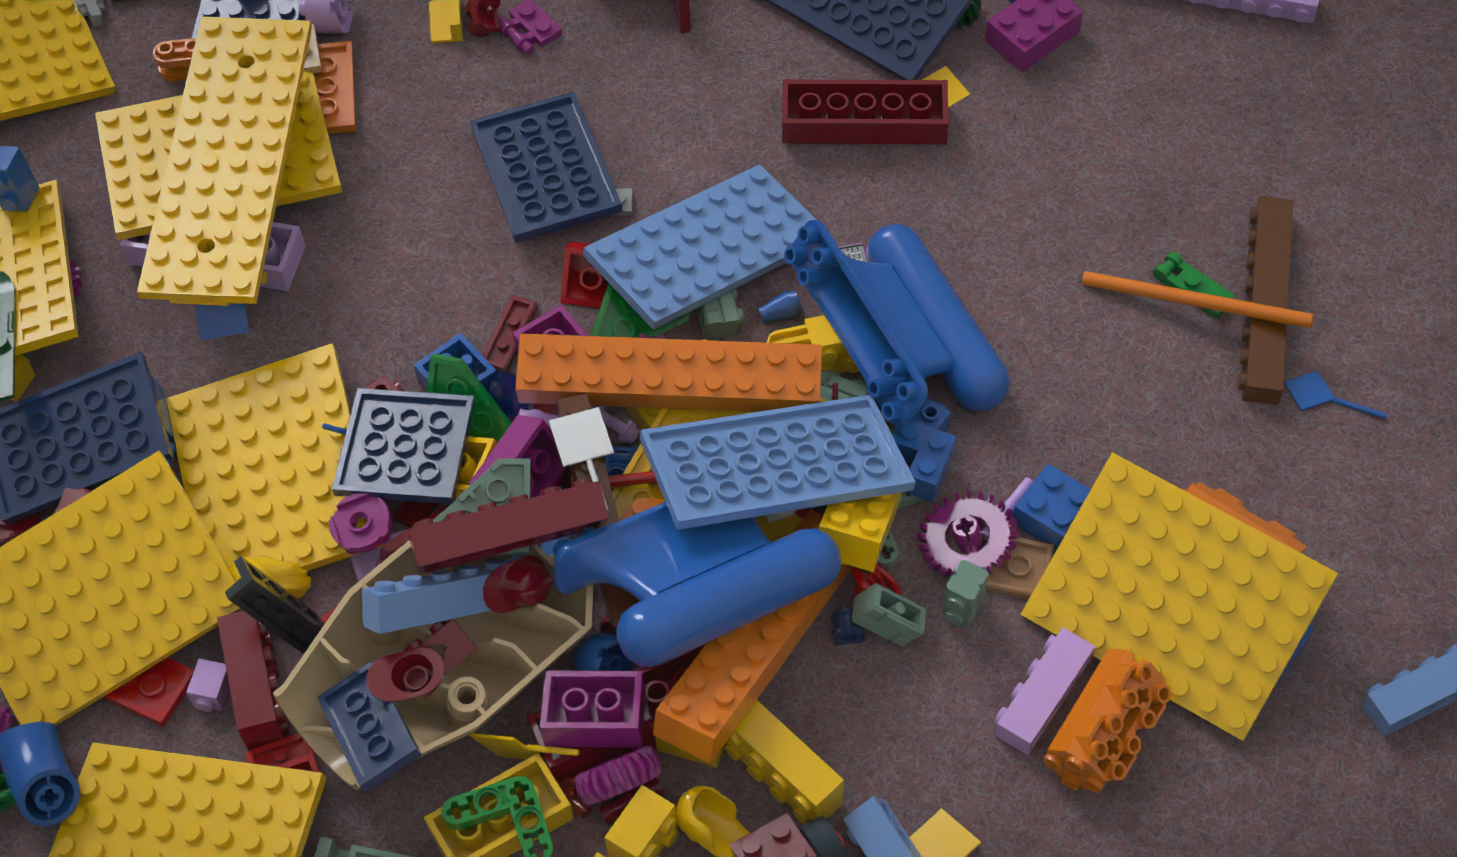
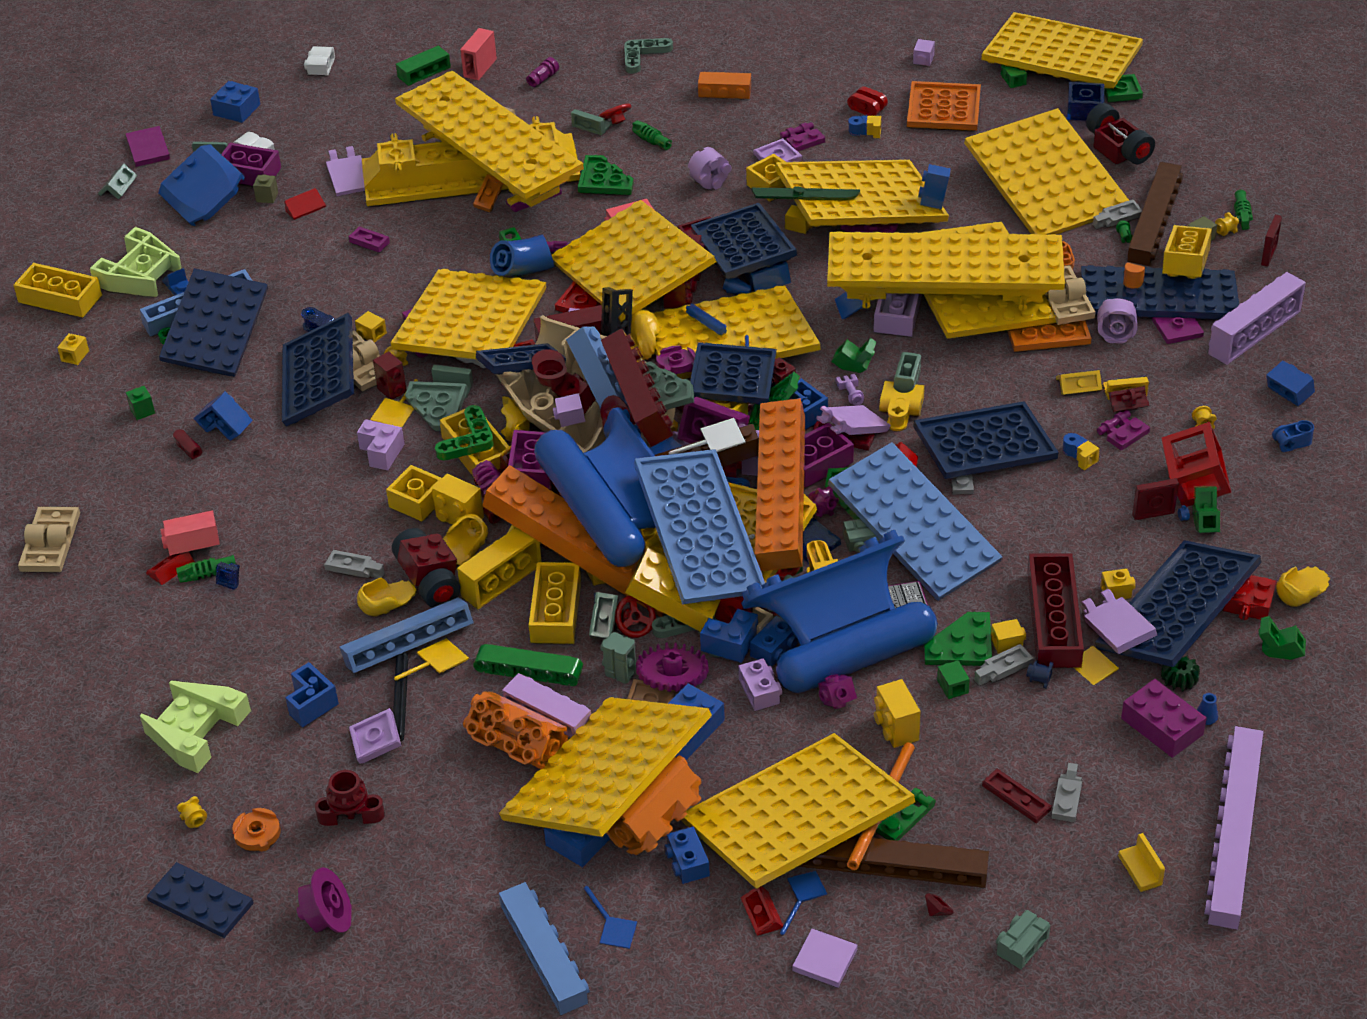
camera: 90 degrees right, 15 degrees down
(252, 492) = (706, 319): none -> blue axle
(353, 311) = (853, 358): none -> green brick
(395, 325) = (855, 396): none -> lavender hinge
(404, 245) = (907, 372): none -> sand green brick
(430, 62) = (1080, 382): none -> yellow panel
(452, 766) = (513, 417): none -> yellow hair
(461, 260) = (900, 404): none -> yellow piece
(498, 309) = (853, 420): none -> lavender tile
(509, 644) = (569, 410): none -> lavender brick
(568, 69) = (1081, 450): none -> leg
(815, 52) = (1118, 582): none -> yellow brick
(851, 685) = (555, 603): none -> yellow brick
(890, 49) = (1118, 622): none -> lavender tile
(902, 165) = (1007, 635): none -> yellow brick
(907, 205) = (963, 640): none -> green plate
(948, 173) = (1003, 665): none -> light grey hinge
(964, 136) = (1040, 673): none -> dark blue brick
(964, 722) = (532, 664): none -> green beam
(977, 224) = (953, 679): none -> green brick
(993, 433) = (759, 684): none -> lavender brick
(1009, 342) = (837, 691): none -> magenta brick
(1051, 276) = (897, 713): none -> yellow brick
(1146, 127) = (1067, 795): none -> light grey hinge
(1151, 176) = (1016, 795): none -> dark red tile
(1219, 383) = (796, 809): none -> yellow plate
(1246, 64) = (1143, 864): none -> yellow panel
(1294, 508) = (687, 855): none -> blue brick
(1329, 257) = (937, 906): none -> dark red slope
(1355, 437) = (761, 911): none -> red slope
(1368, 178) = (1023, 938): none -> sand green brick
(1403, 595) = (616, 930): none -> blue piece
(1415, 372) = (824, 958): none -> lavender tile

